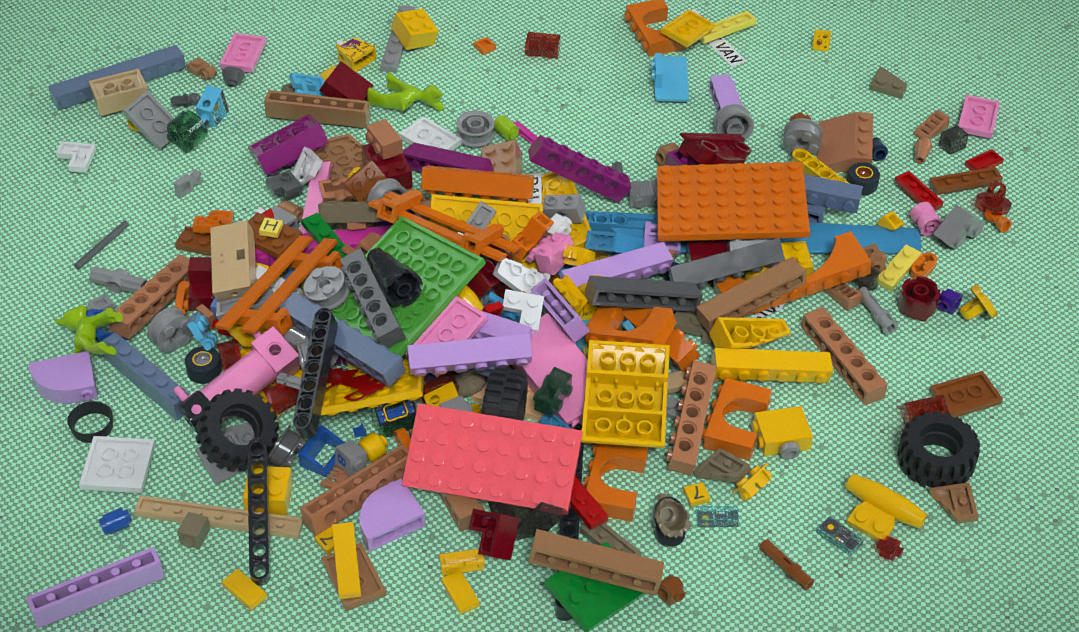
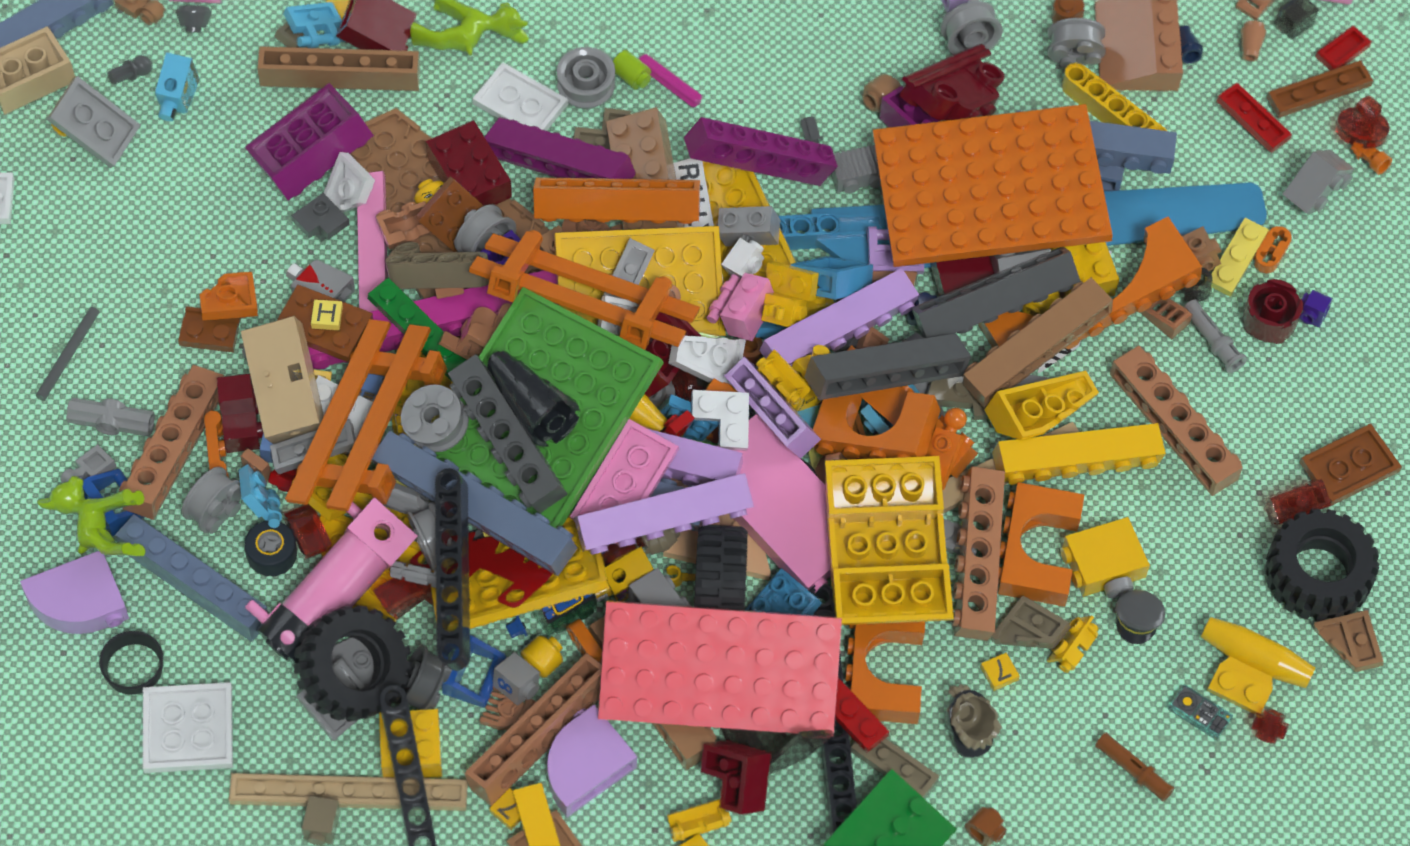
camera: 10 degrees left, 15 degrees up
(115, 521) = (207, 819): blue brick -> none
(185, 184) = (167, 232): light grey plate -> none
(186, 131) = (149, 135): clear green brick -> none
(292, 208) = (339, 259): medium nougat brick -> none
(384, 139) = (461, 133): nougat brick -> none
(532, 234) = (710, 279): orange brick -> none
(553, 392) = (789, 539): clear green brick -> none
(587, 239) = (792, 280): none -> yellow plate
(596, 562) = (885, 809): medium nougat brick -> none
(678, 343) = (947, 443): none -> orange plate
(717, 516) = (1032, 702): clear light blue tile -> none
(801, 470) = (1139, 616): none -> dark grey piece
(864, 175) = (1172, 103): black wheel -> none
(890, 221) = (1219, 178): yellow slope -> none
(925, 218) = (1269, 167): bright pink wheel -> none
(978, 305) = (1357, 312): yellow tile -> none

